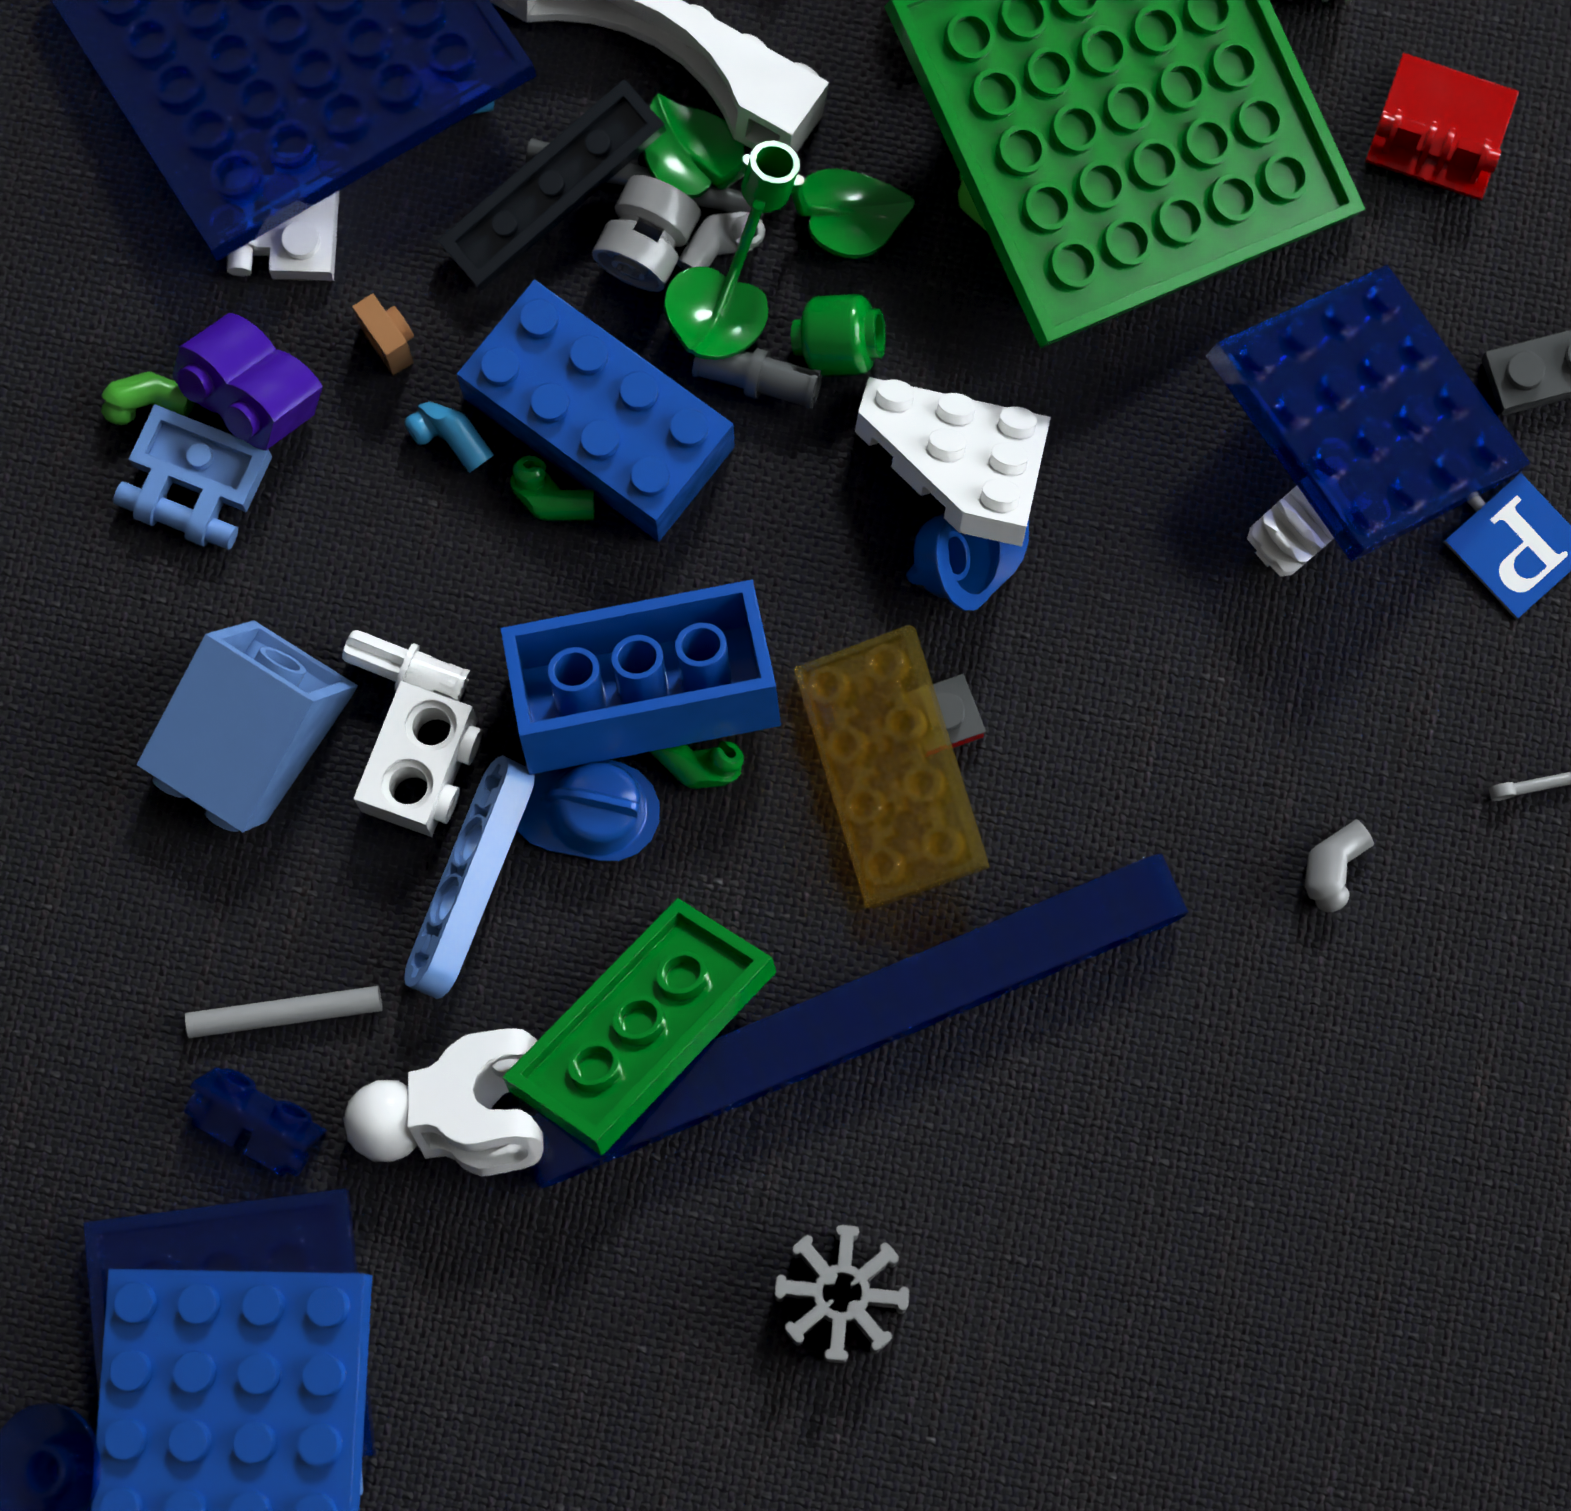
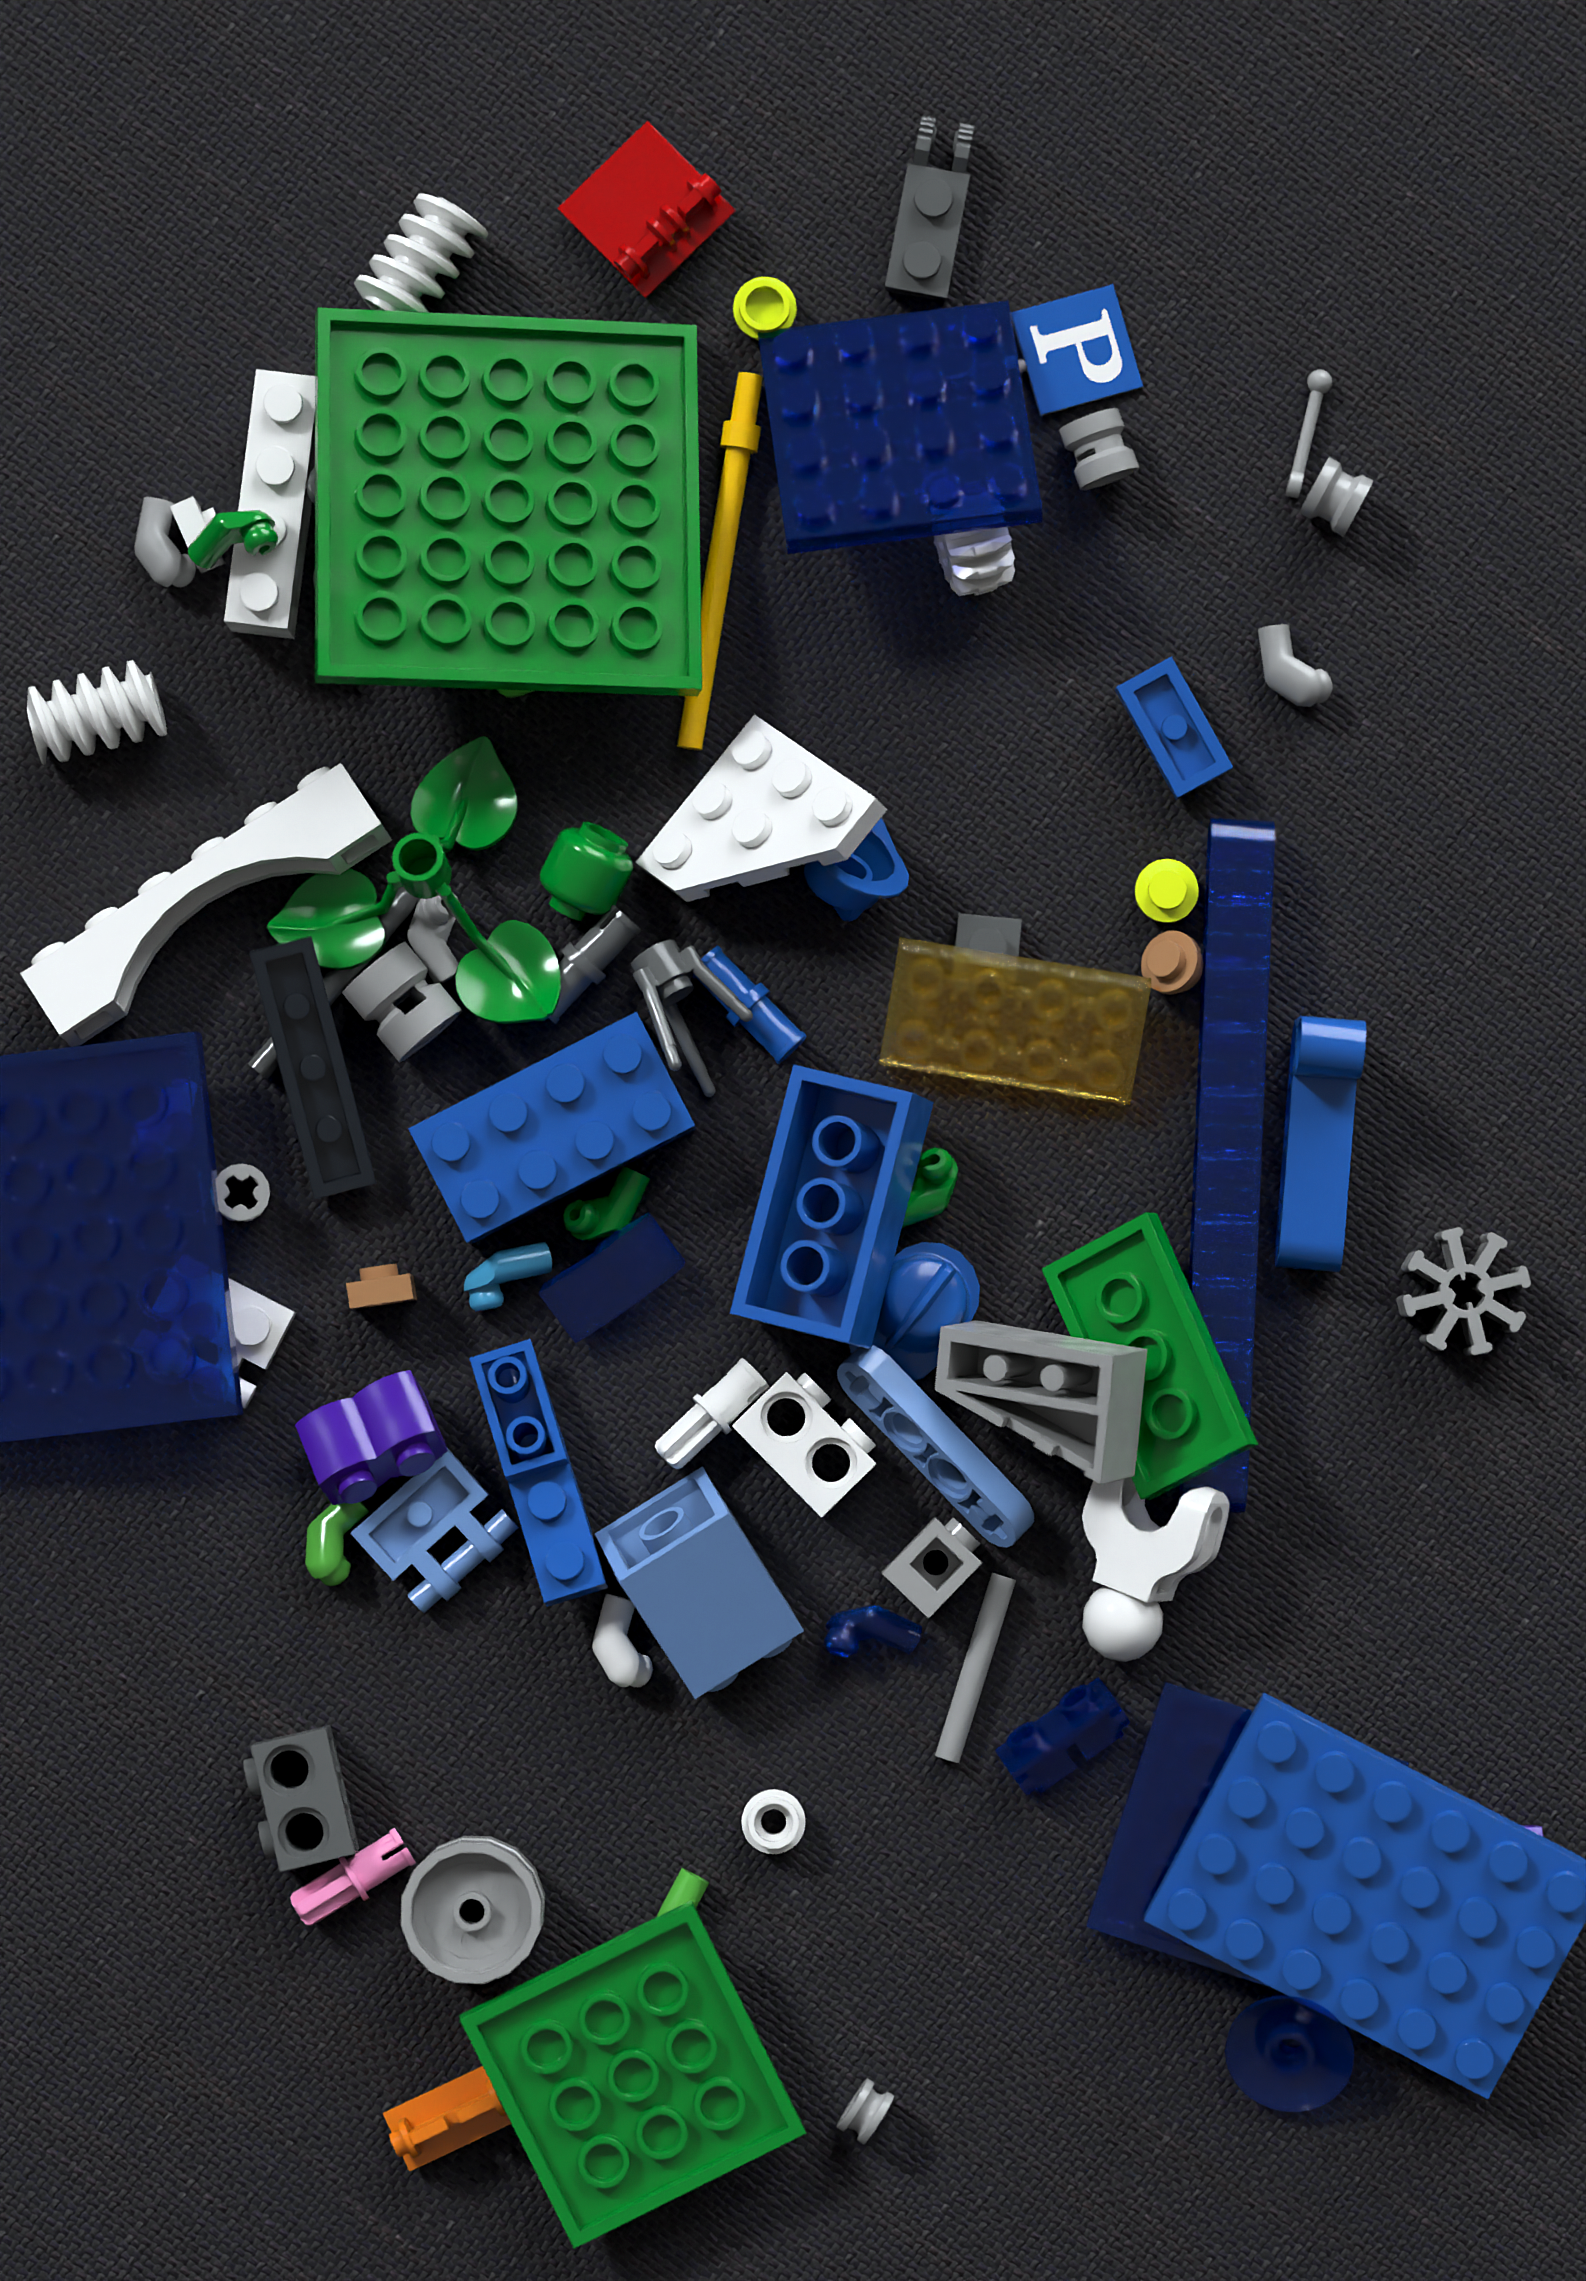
camera: 65 degrees left, 10 degrees up
(44, 884) = (773, 1842): none -> white plate
(151, 686) = (613, 1647): none -> white arm
(279, 893) = (870, 1622): none -> clear blue arm
(286, 542) = (538, 1472): none -> blue slope
(346, 905) = (931, 1590): none -> light grey brick
(405, 163) = (261, 1193): none -> light grey bush
(488, 523) = (612, 1278): none -> clear blue slope
(565, 947) = (1052, 1388): none -> light grey wedge
(780, 443) = (664, 980): none -> dark grey plant
(790, 529) = (768, 1023): none -> blue pin
(916, 1091) = (1318, 1142): none -> blue beam
(1013, 883) = (1172, 962): none -> medium nougat plate
(1076, 848) = (1166, 890): none -> neon yellow plate
(1226, 785) = (1173, 728): none -> blue plate
(1281, 295) = (740, 439): none -> yellow bar
(1412, 260) = (764, 306): none -> neon yellow plate
(1442, 600) = (1099, 449): none -> light grey wheel
(1512, 829) = (1336, 496): none -> light grey wheel

